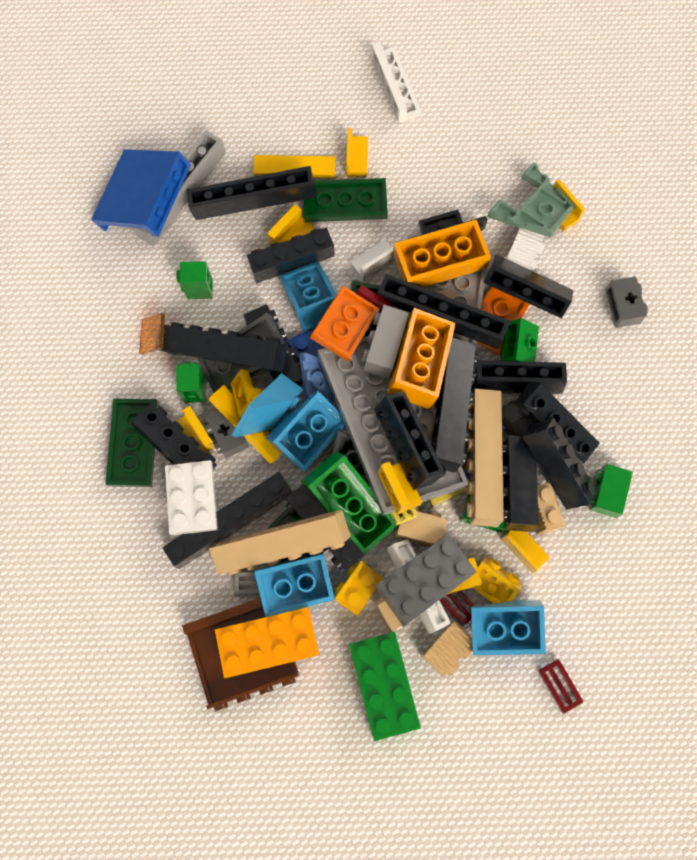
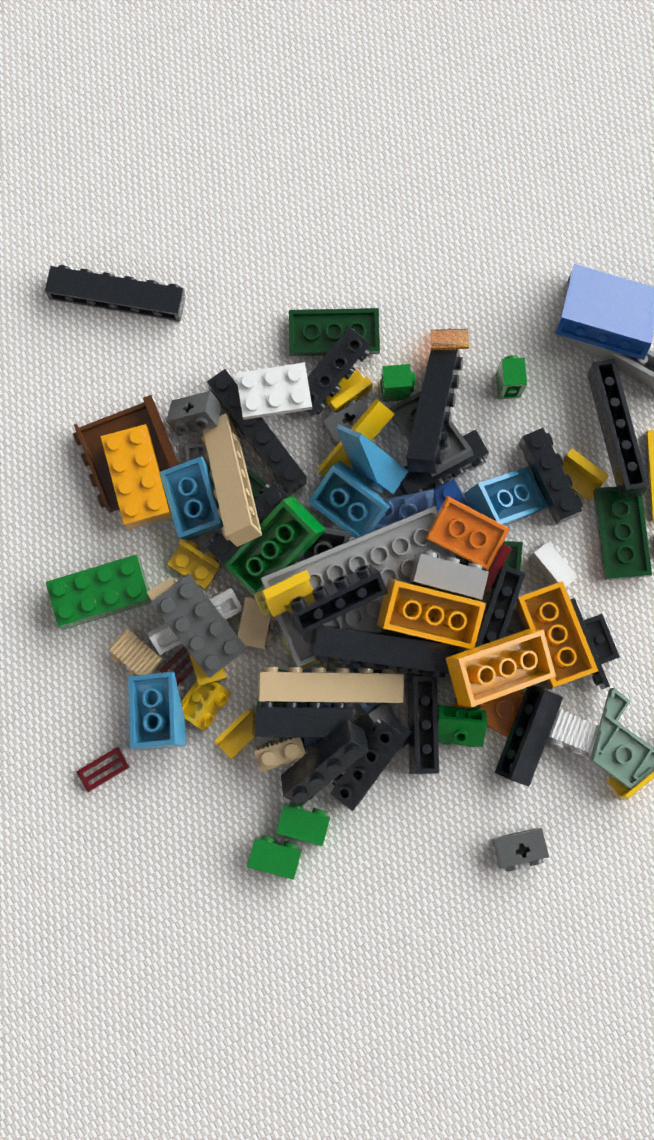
camera: 85 degrees right, 5 degrees up
(66, 665) = (115, 293): none -> black brick
(205, 581) = (194, 413): none -> dark grey brick
(243, 391) = (387, 434): yellow slope -> none
(476, 296) = (500, 667): none -> light orange brick
(642, 518) = (274, 857): none -> green brick

